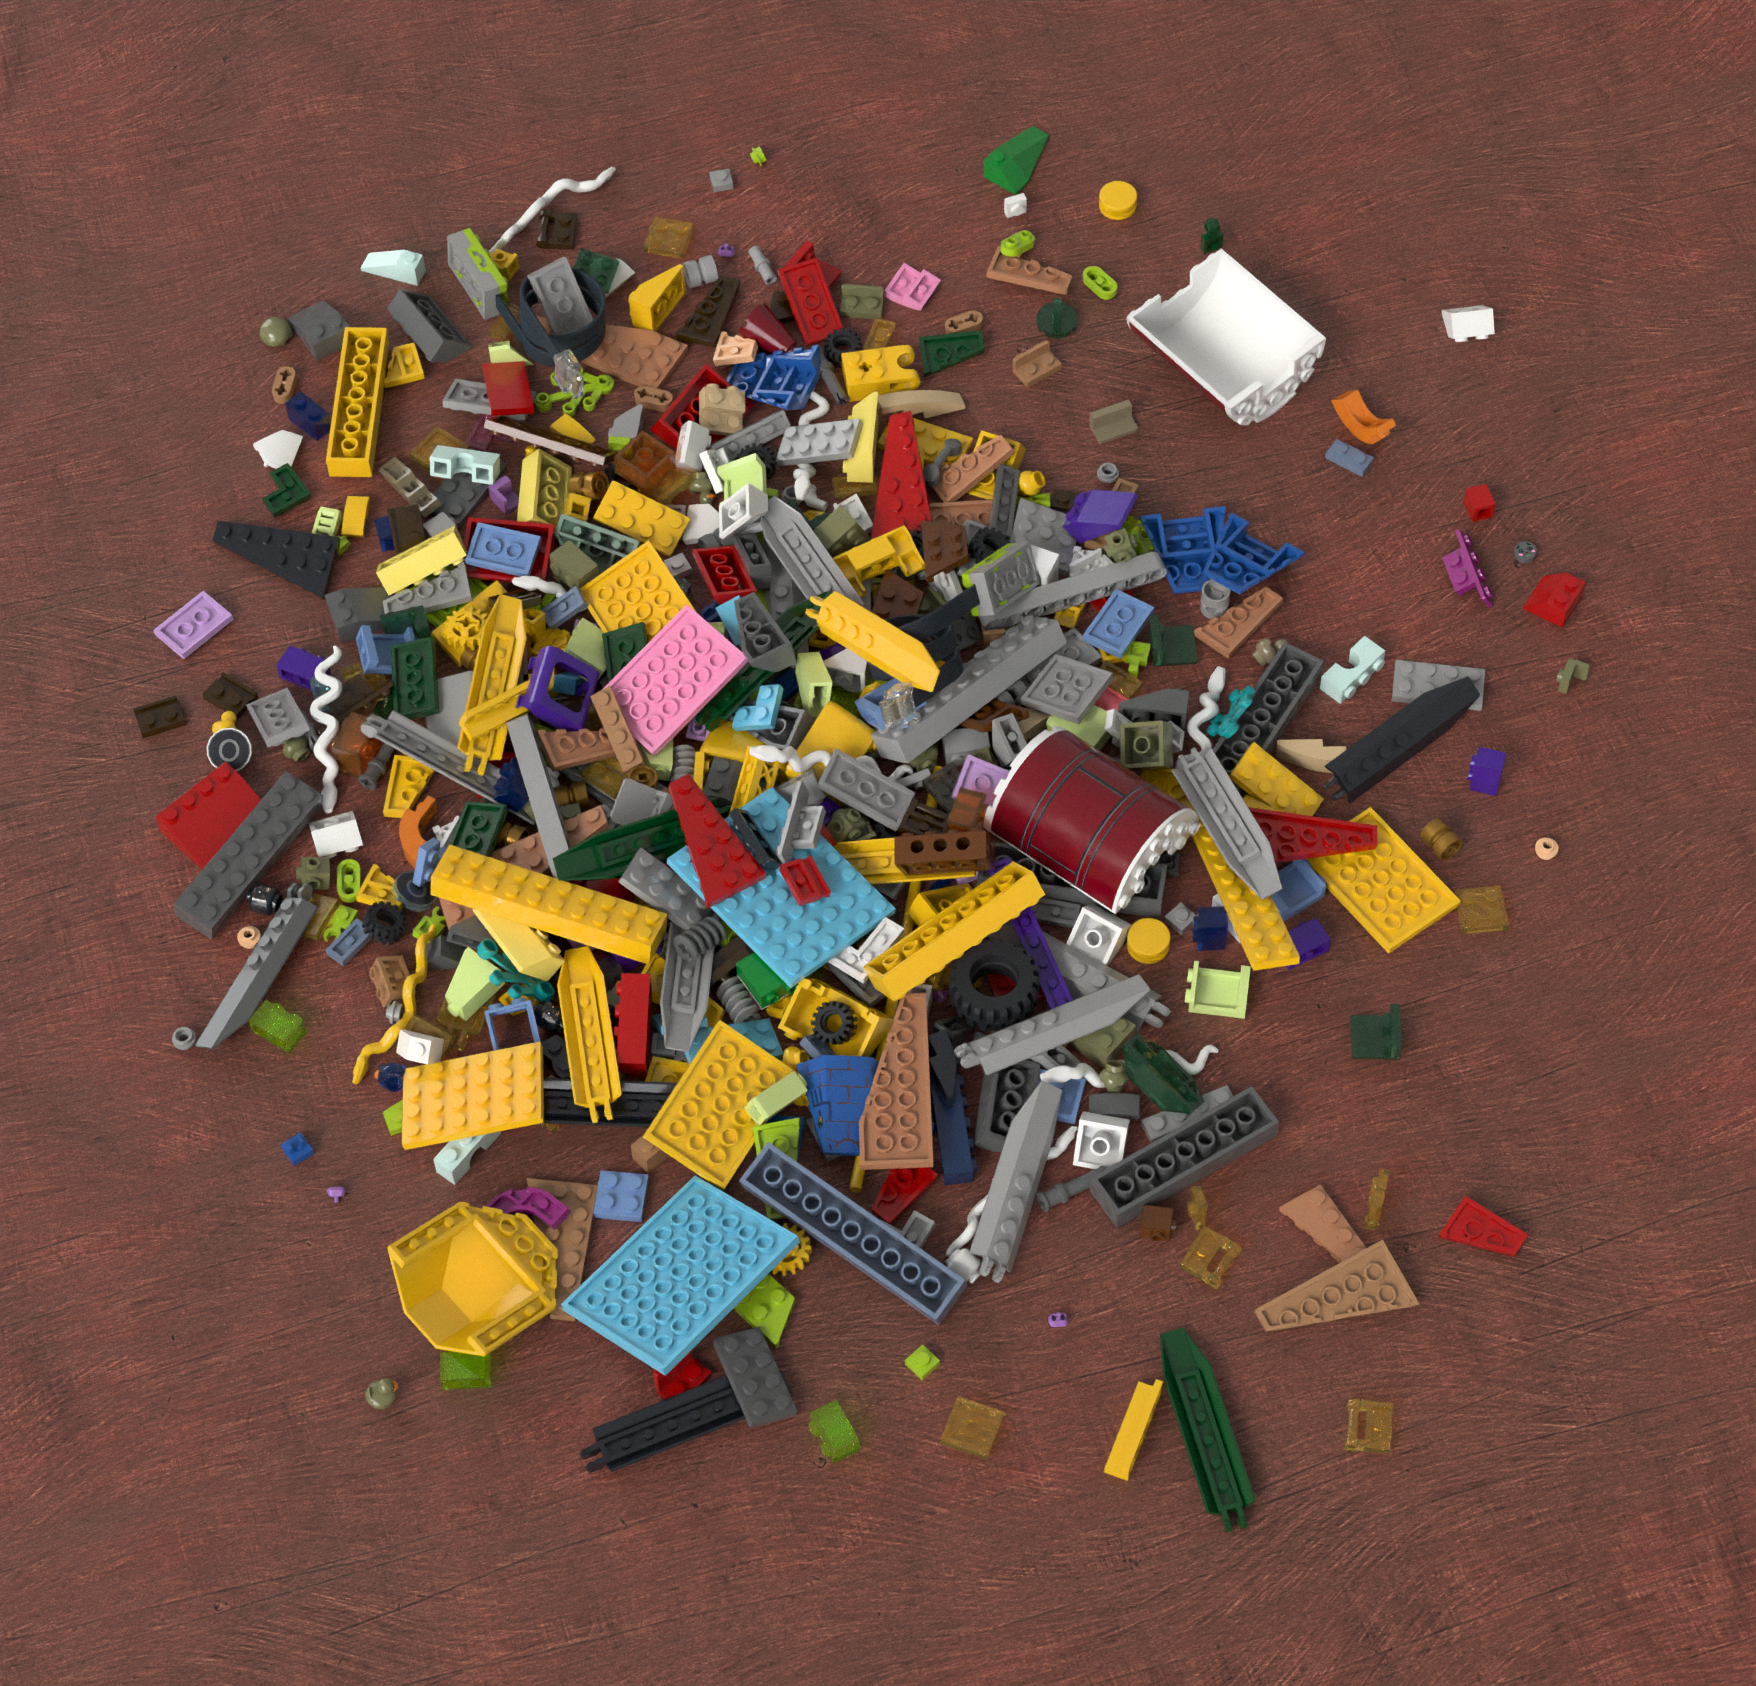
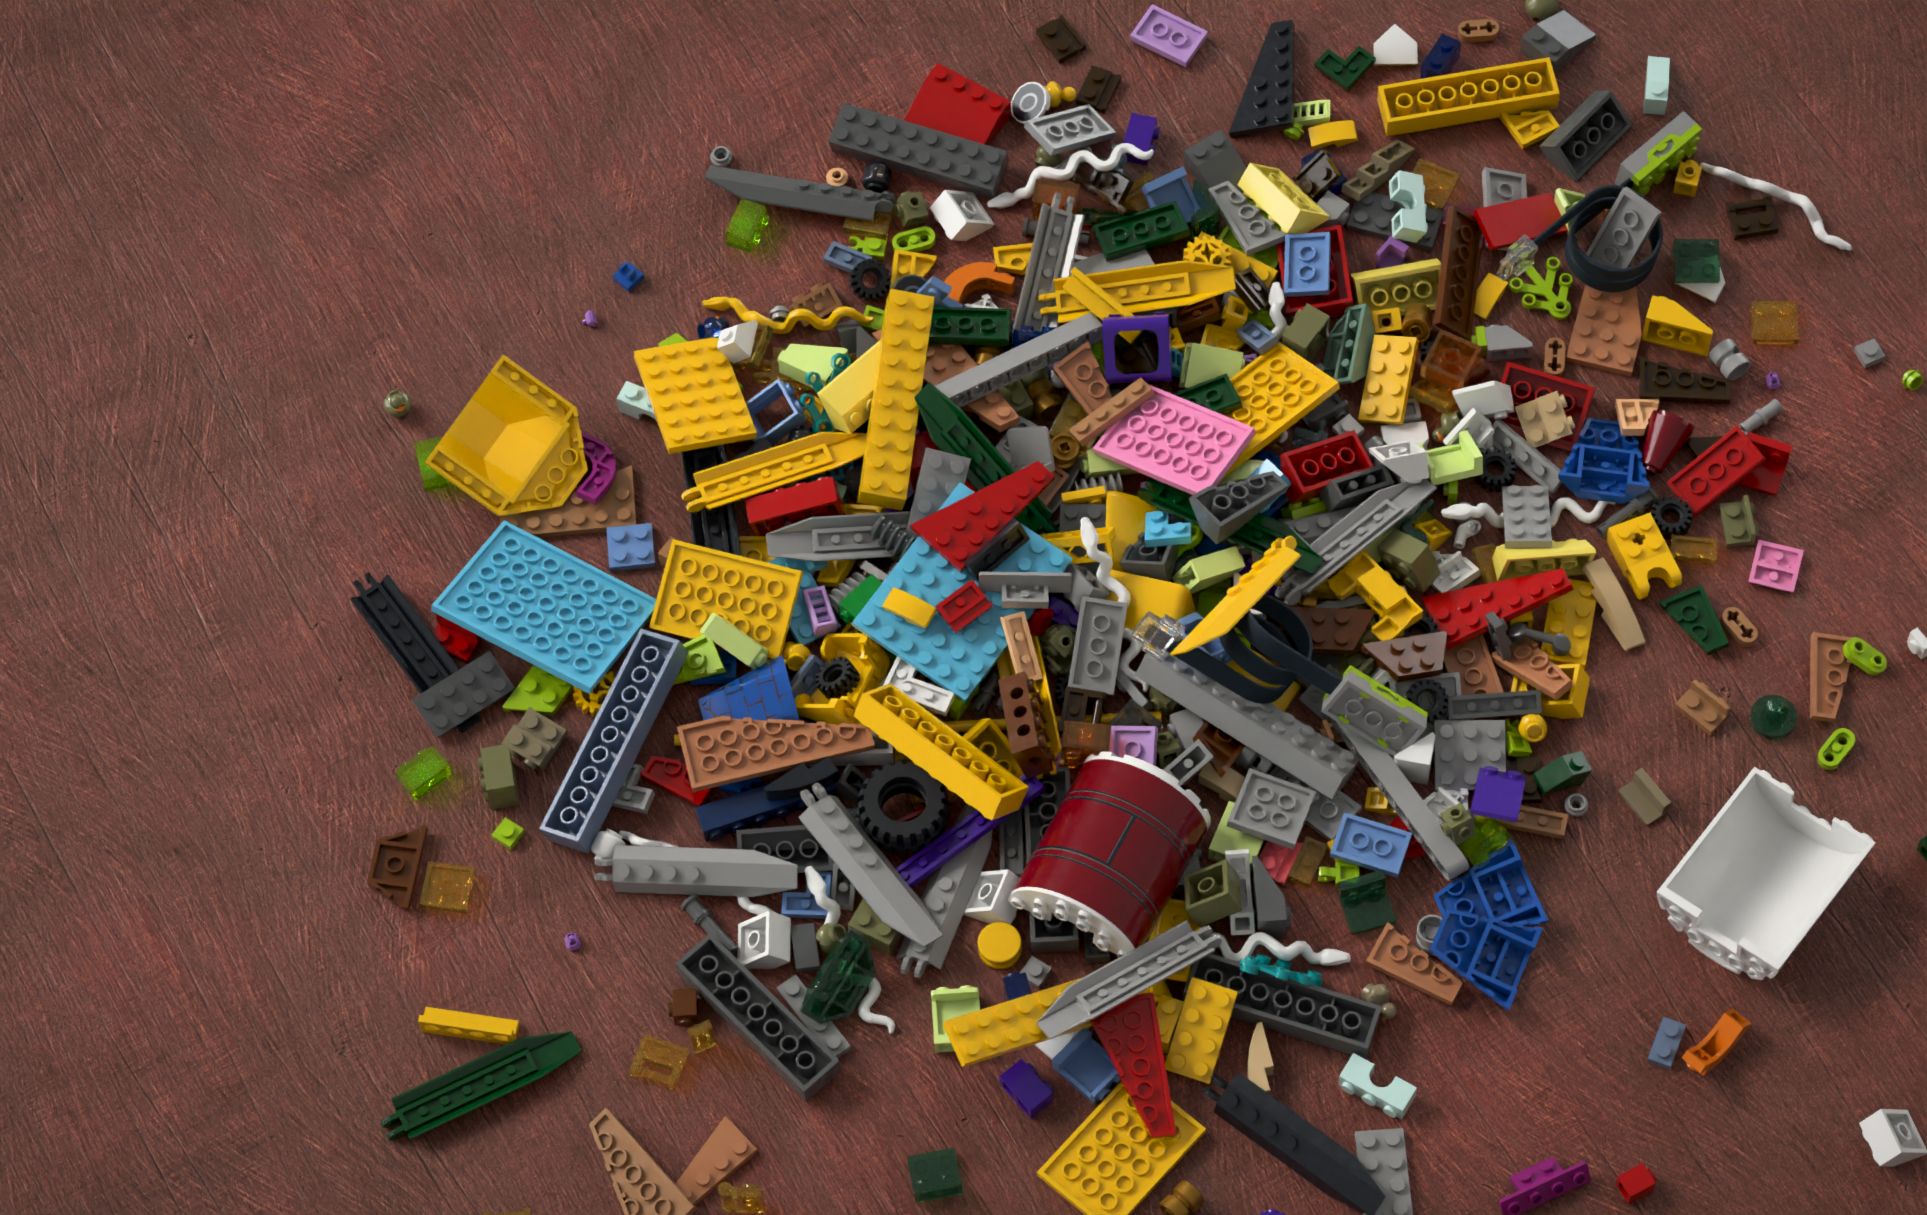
camera: 80 degrees right, 5 degrees up
(762, 1018) = (824, 624): none -> lavender slope
(793, 925) = (909, 607): none -> yellow slope
(823, 1317) = (535, 739): none -> dark tan plate
(856, 847) = (1021, 645): none -> light nougat plate
(863, 1351) = (498, 776): none -> olive brick
(936, 1474) = (397, 865): none -> reddish brown wing
(937, 483) = (1499, 638): none -> dark grey plate
(1079, 470) = (1563, 773): none -> dark green slope

